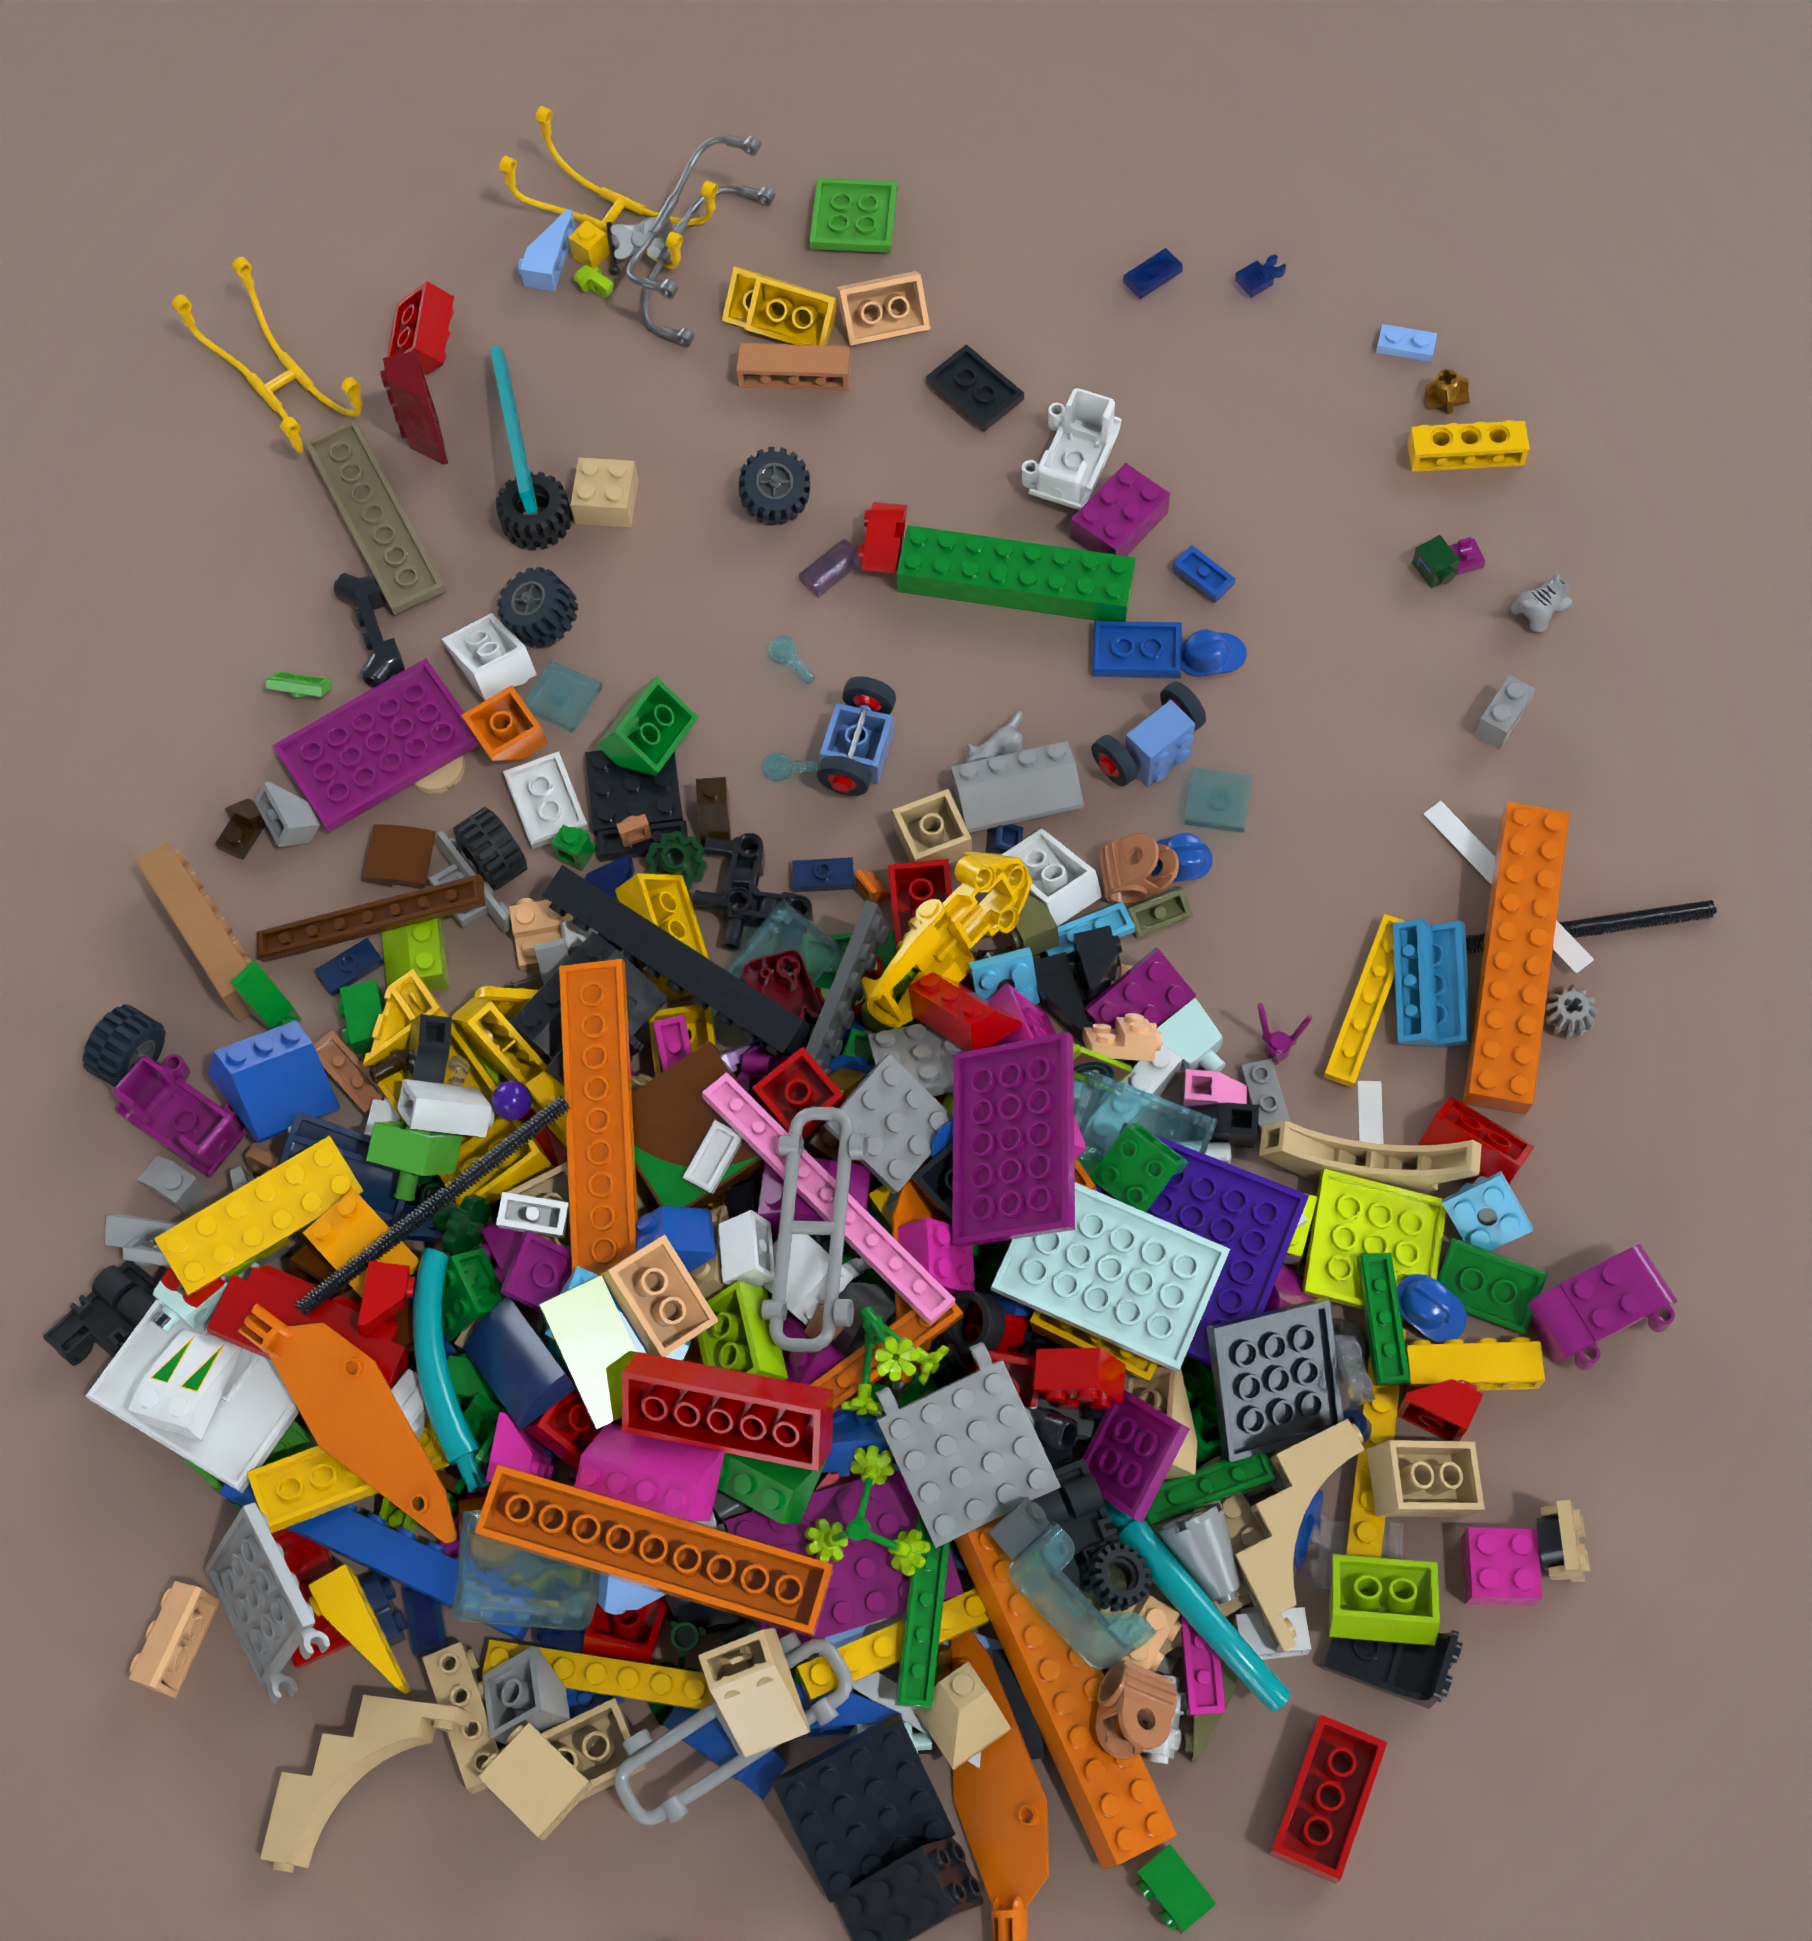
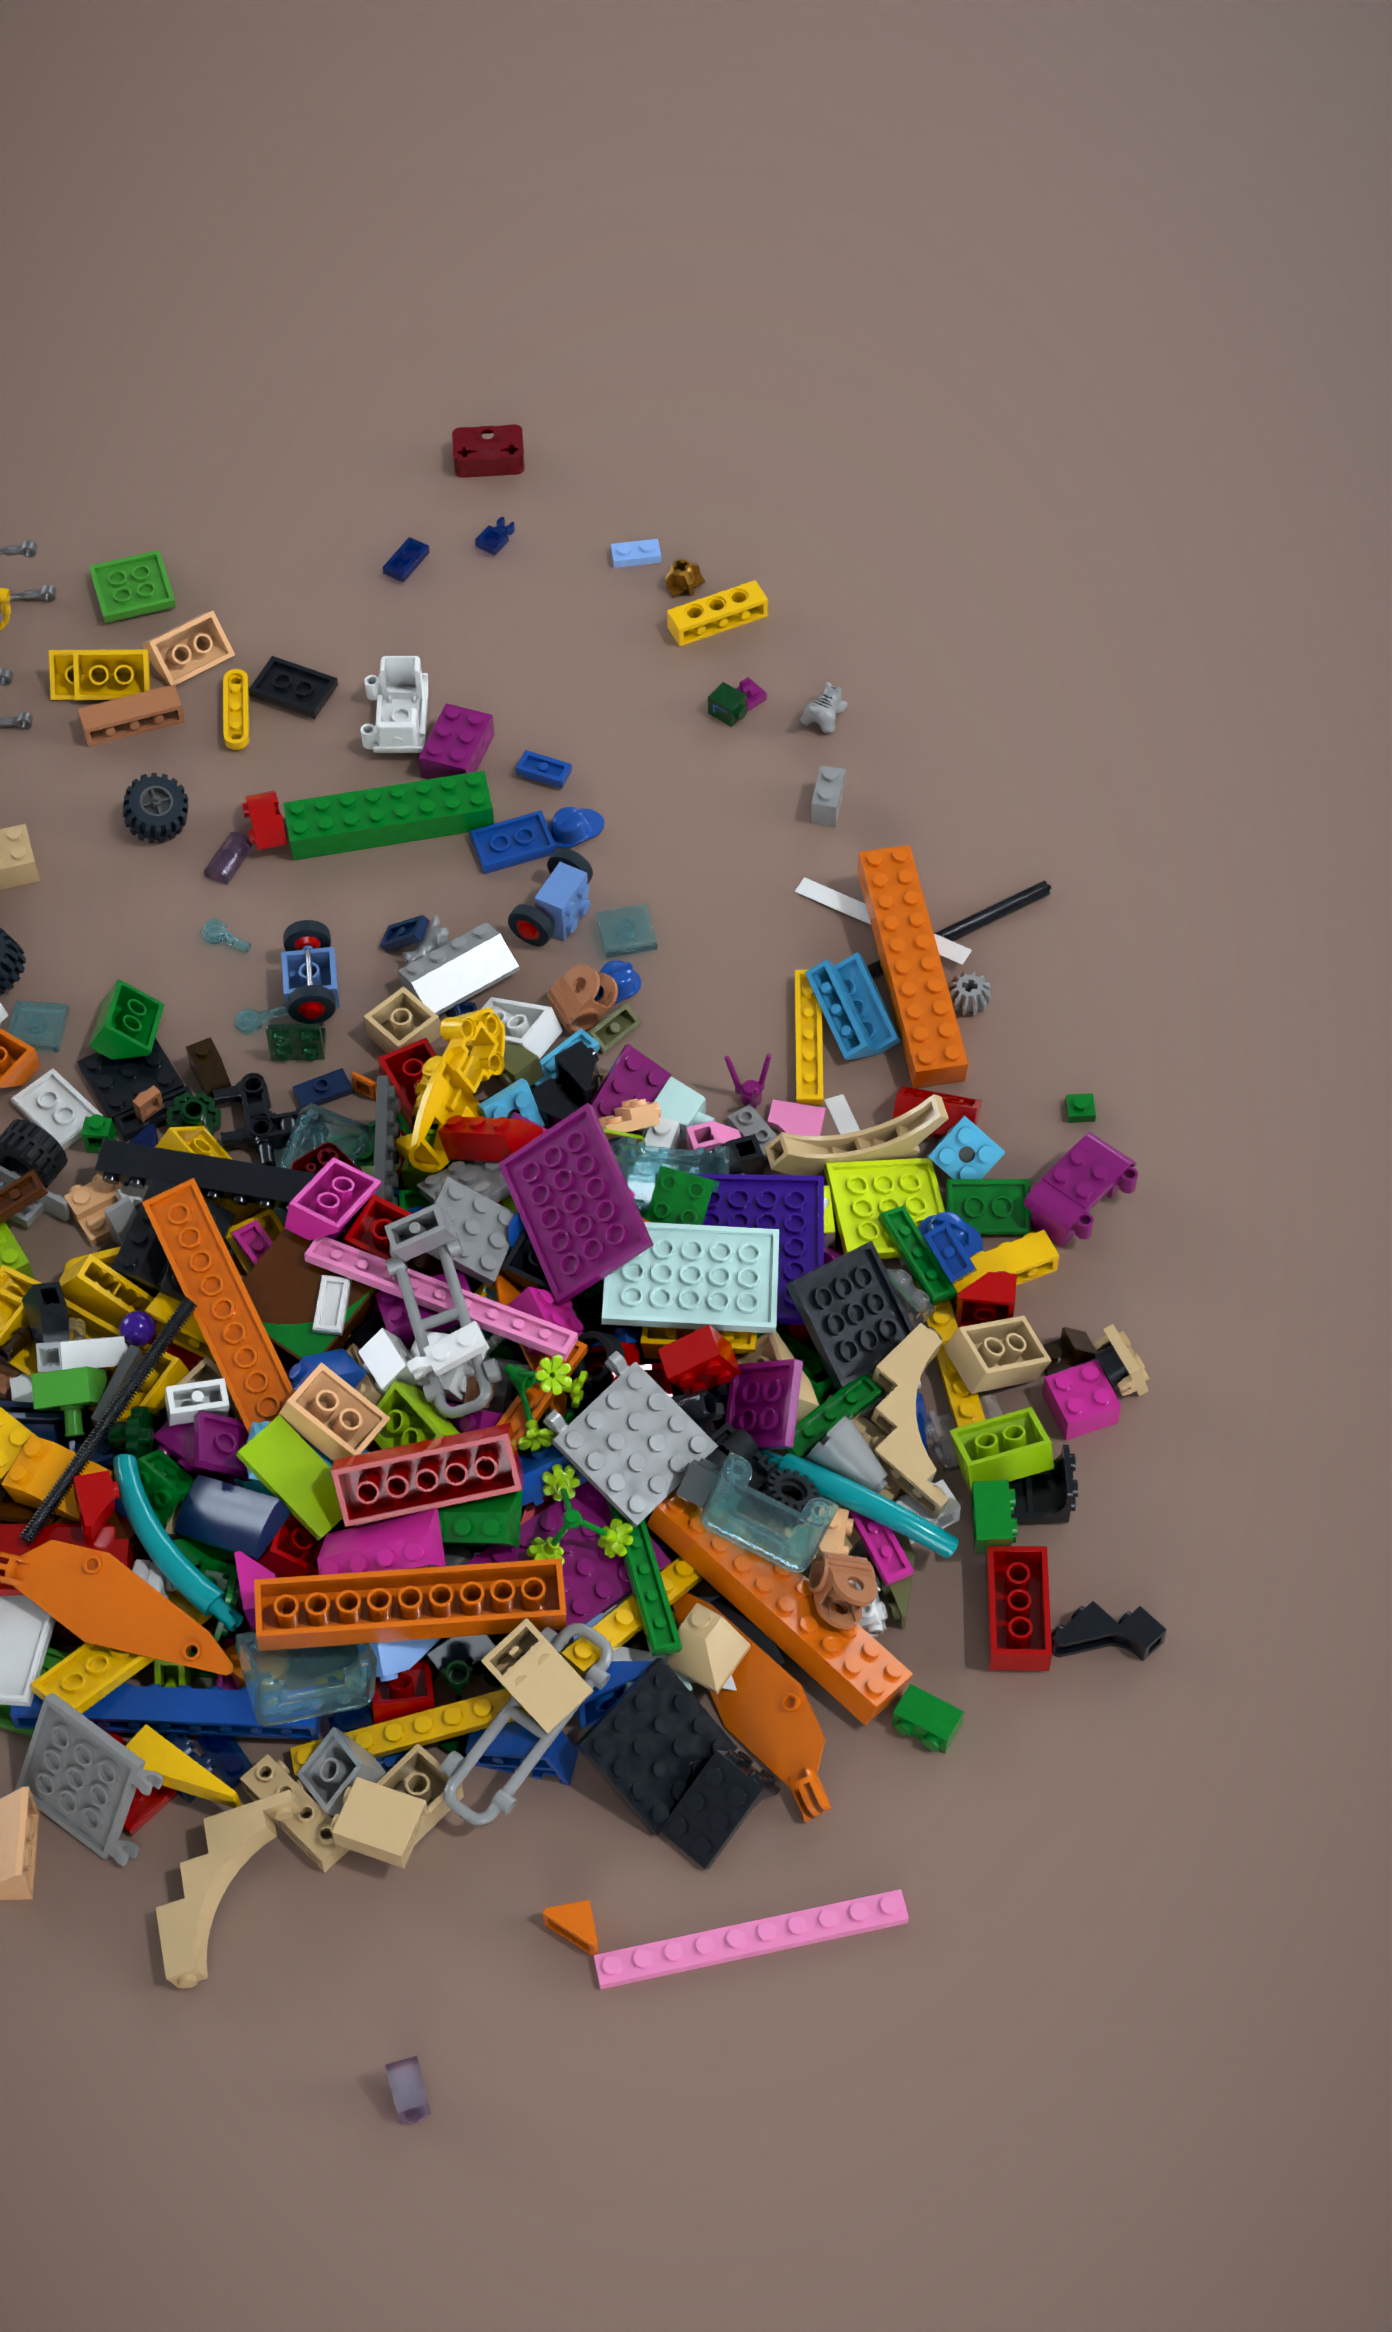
camera: 25 degrees left, 10 degrees down
(474, 1150) = (122, 1373): none -> dark grey tile
(753, 1039) = (329, 1200): none -> dark pink slope
(805, 1274) = (450, 1351): none -> white plate
(816, 811) = (296, 1041): none -> clear green bracket
(823, 1125) = (420, 1232): none -> light grey brick
(905, 394) = (236, 709): none -> yellow plate
(977, 722) = (404, 933): none -> dark blue plate
(1288, 177) = (488, 457): none -> dark red axle
(1316, 1099) = (796, 1118): none -> bright pink tile
(1339, 1682) = (991, 1514): none -> green brick
(1406, 1857) = (1095, 1629): none -> black arch
(1419, 1334) = (950, 1252): none -> blue plate
(1512, 1496) = (1069, 1350): none -> dark brown slope
(1644, 1198) = (1080, 1108): none -> green plate

